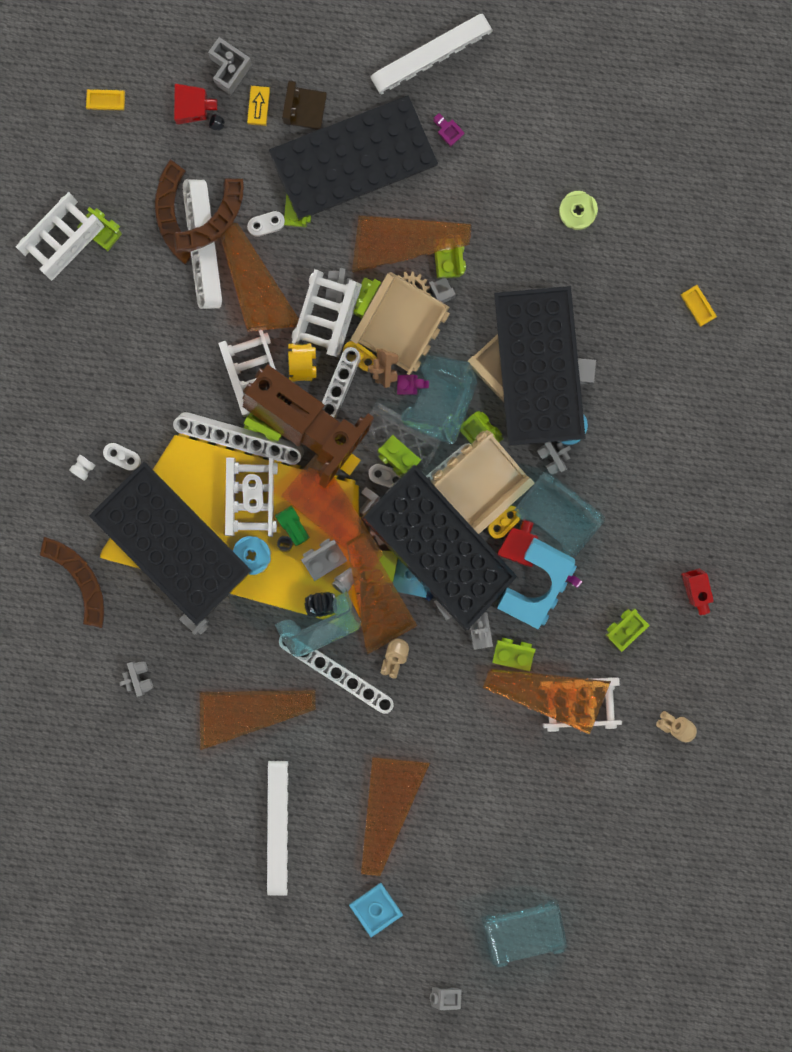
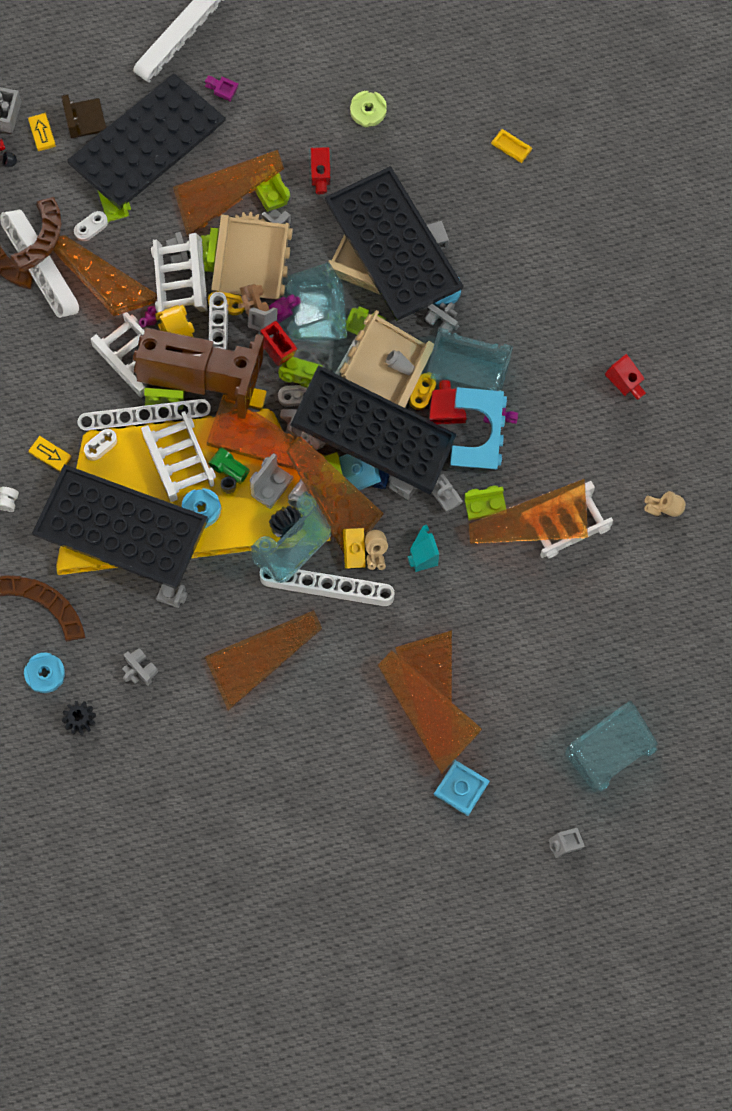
camera: 25 degrees left, 15 degrees down
(45, 638) = (35, 666): none -> medium azure plate
(66, 694) = (86, 713): none -> black gear
(122, 456) = (41, 473): white plate -> none
(139, 438) = (49, 453): none -> yellow tile
(183, 450) = (98, 441): none -> white beam
(253, 493) = (178, 449): white plate -> none
(277, 828) = (334, 750): white beam -> none
(282, 344) = (150, 317): none -> magenta arm
(375, 648) = (354, 548): none -> yellow plate
(379, 844) = (434, 717): none -> clear orange wing
(384, 392) = (260, 319): none -> light grey panel
(386, 427) = (280, 345): none -> red torso
(436, 678) = (424, 551): none -> teal slope
(493, 487) = (399, 362): none -> light grey cone
(508, 250) = (320, 156): none -> red torso
(627, 629) = (578, 439): lime bracket -> none

